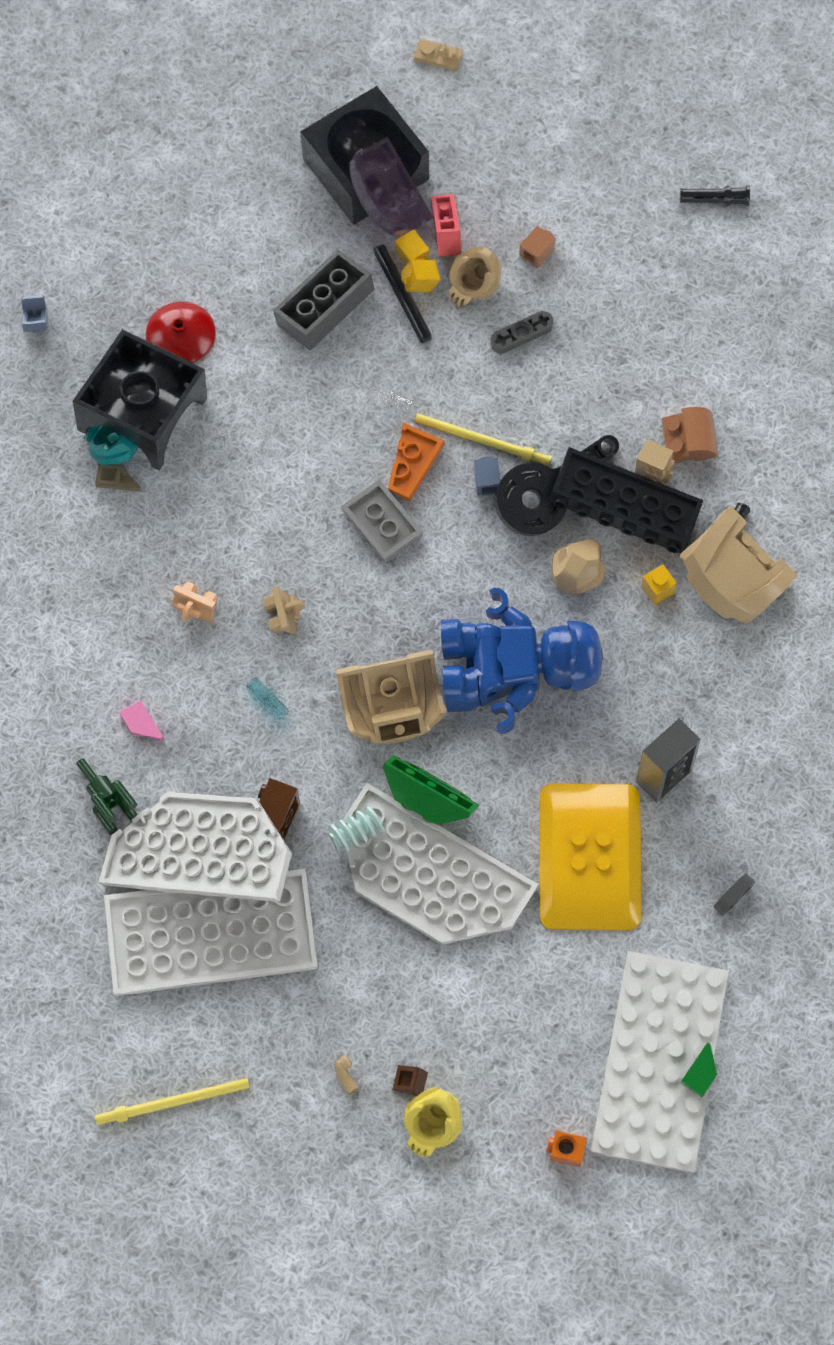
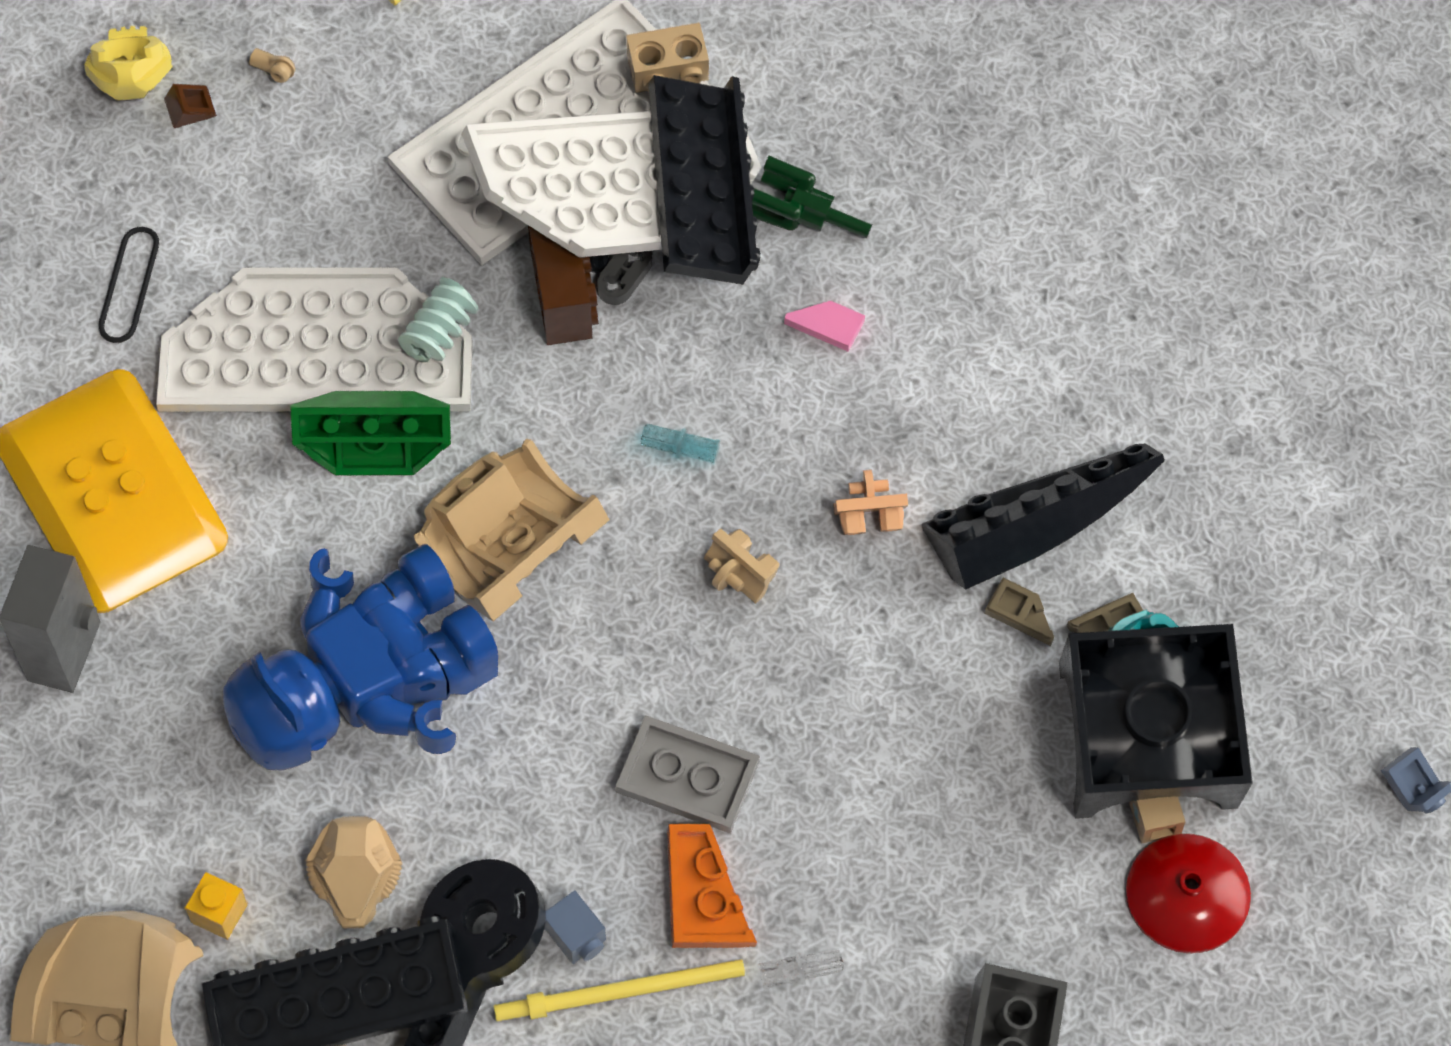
camera: 145 degrees right, 5 degrees down
(112, 549) = (1034, 516): none -> black wedge
(116, 929) = (665, 50): none -> tan brick
(153, 827) = (703, 179): none -> black bracket
(157, 511) = (1020, 610): none -> dark tan tile
(503, 972) = (143, 290): none -> black piece

